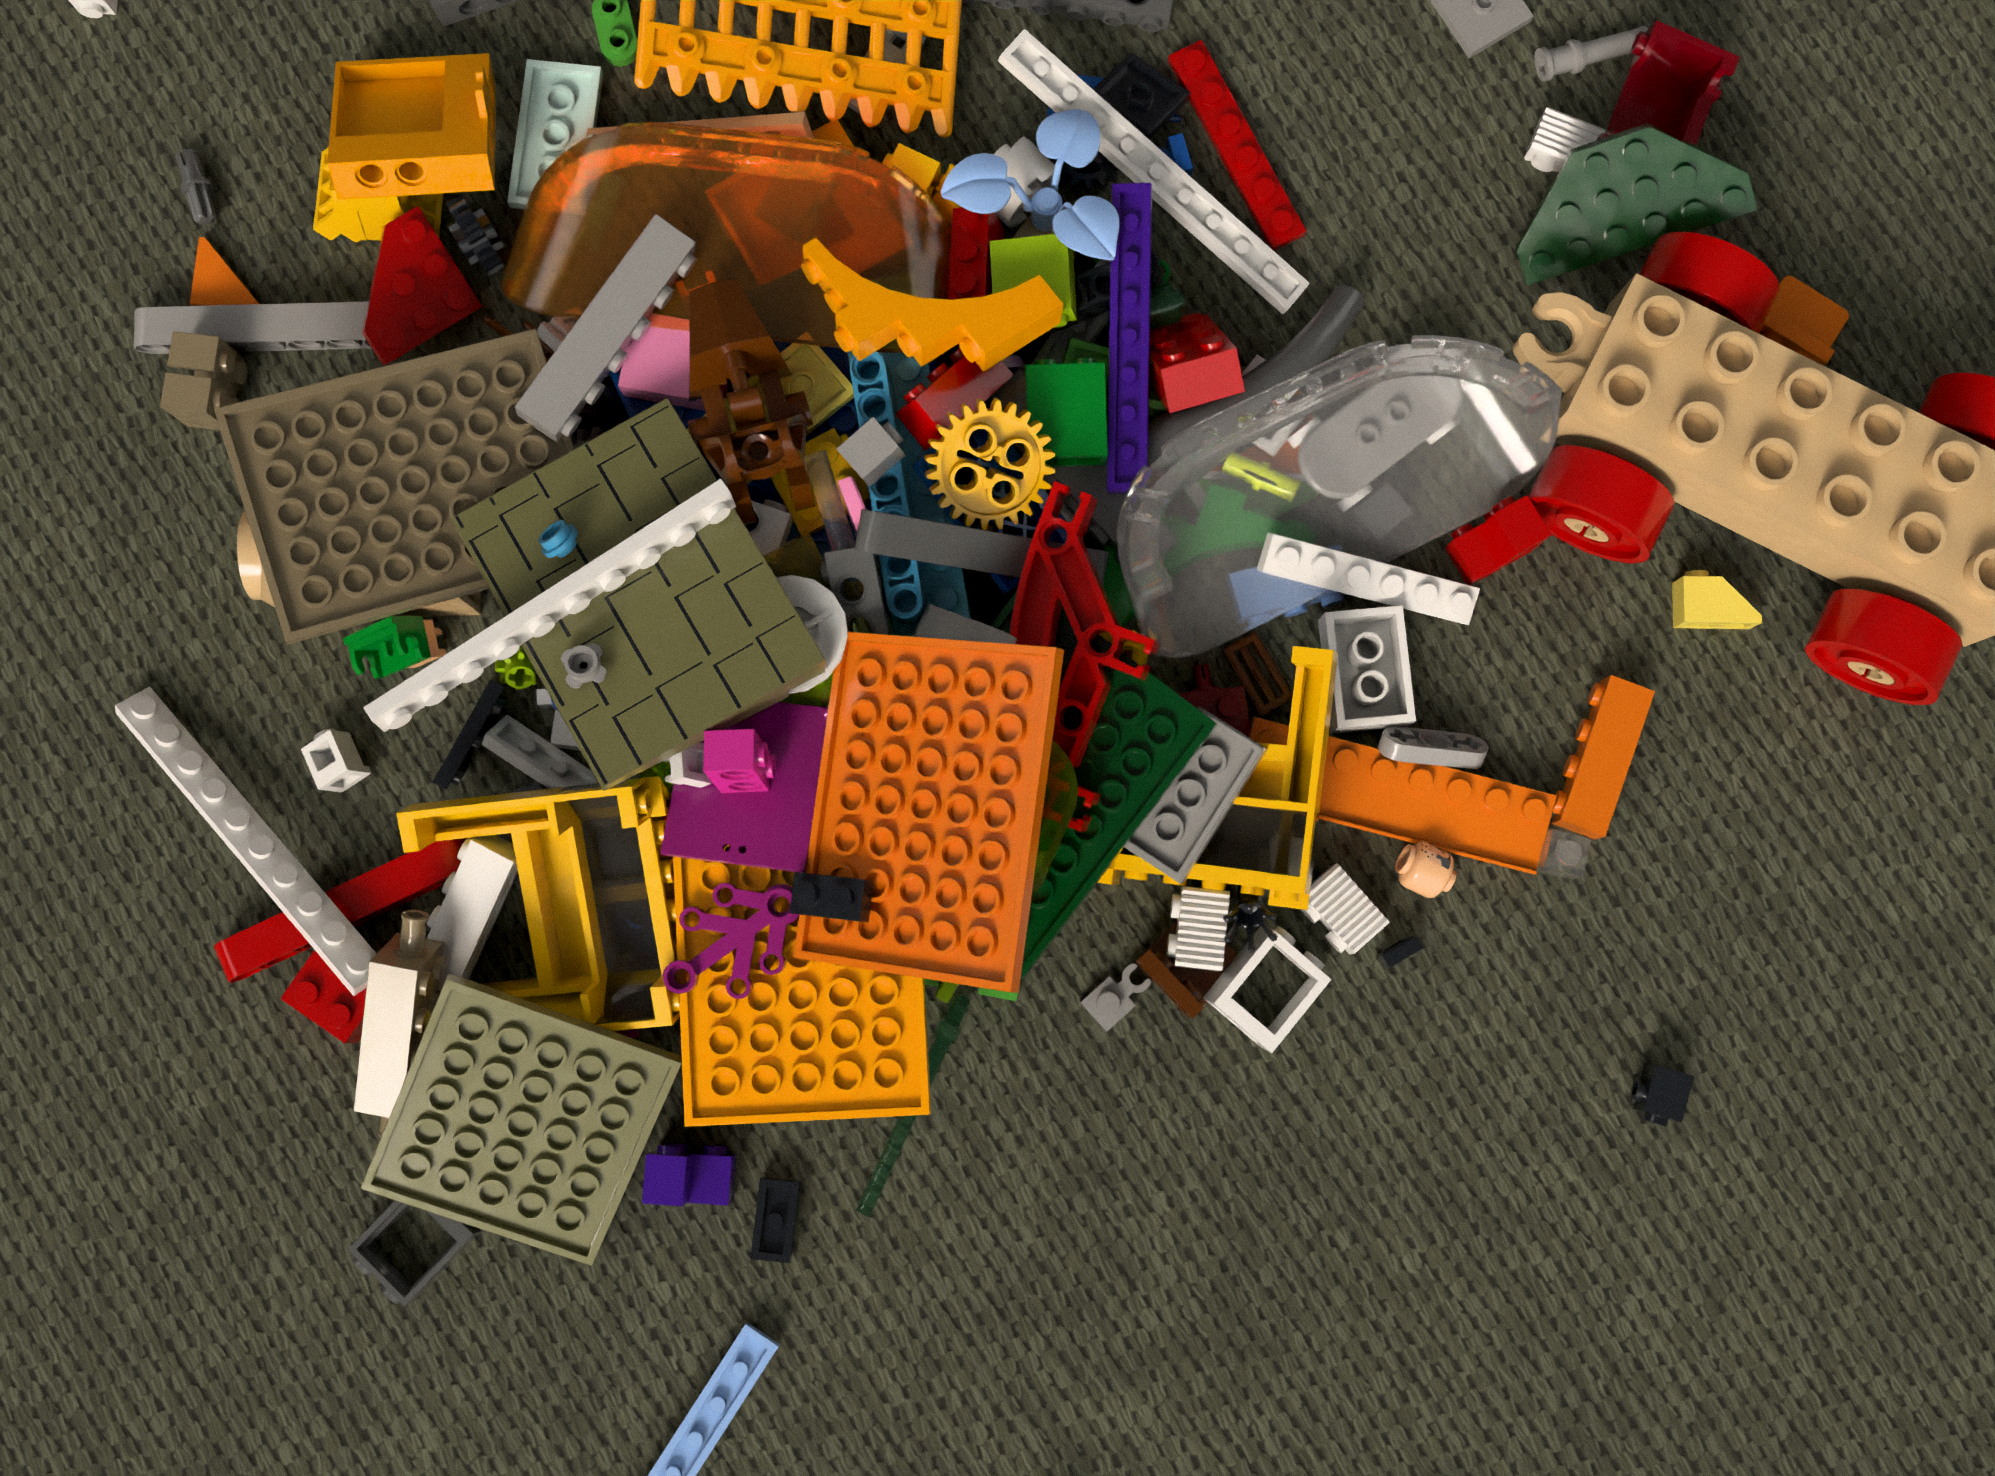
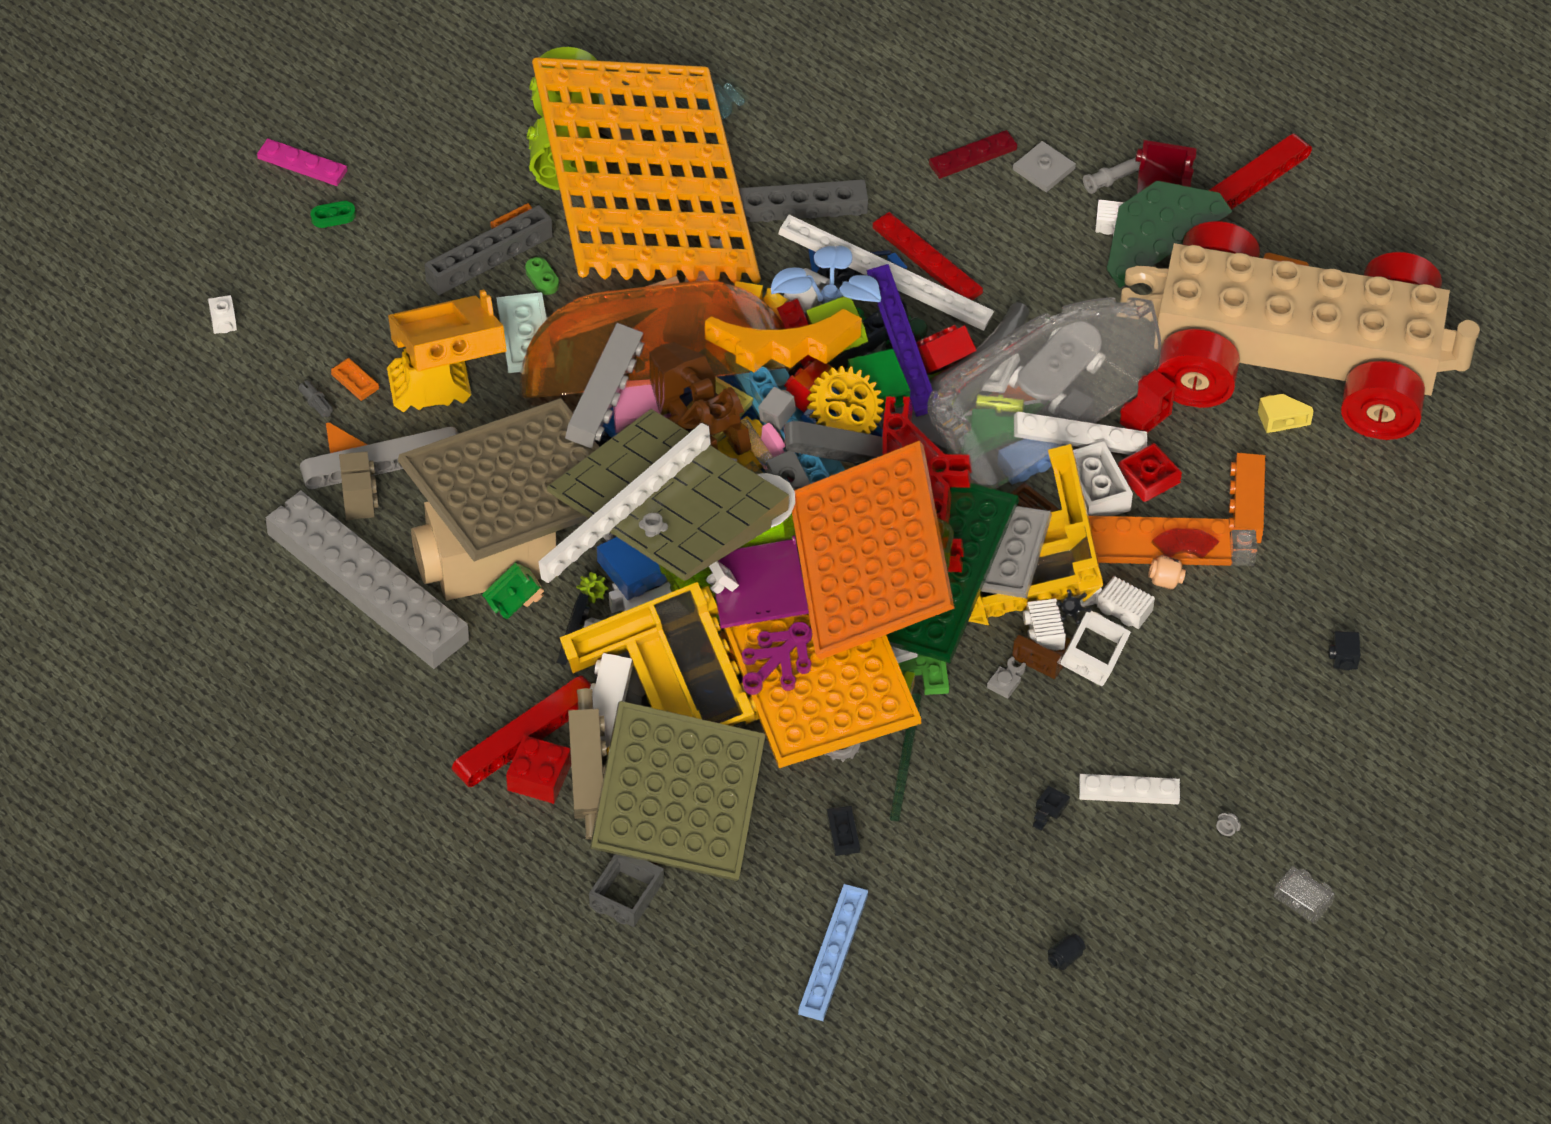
camera: 15 degrees left, 30 degrees down
(178, 558) = (367, 579): none -> light grey piece
(249, 837) = (461, 701): white plate -> none
(266, 162) = (354, 379): none -> orange plate
(334, 761) = (496, 658): white brick -> none
(413, 288) = (466, 406): red plate -> none
(475, 235) = (497, 382): black gear -> none
(558, 539) = (616, 475): dark azure plate -> none
(685, 1176) = (782, 816): dark purple brick -> none
(738, 761) = (753, 561): dark pink brick -> none
(831, 897) = (829, 612): black plate -> none
(1110, 1257) = (1050, 804): none -> black plate
(1142, 94) = (868, 240): black plate -> none
(1240, 1255) = (1129, 789): none -> white plate
(1372, 1366) = (1228, 824): none -> light grey plate
(1399, 951) = (1166, 616): black tile -> none
(1432, 747) = (1148, 511): light grey beam -> none
(1468, 646) = (1150, 472): none -> red brick
(1472, 824) = (1185, 541): none -> clear red tile
(1823, 112) = (1263, 170): none -> red beam

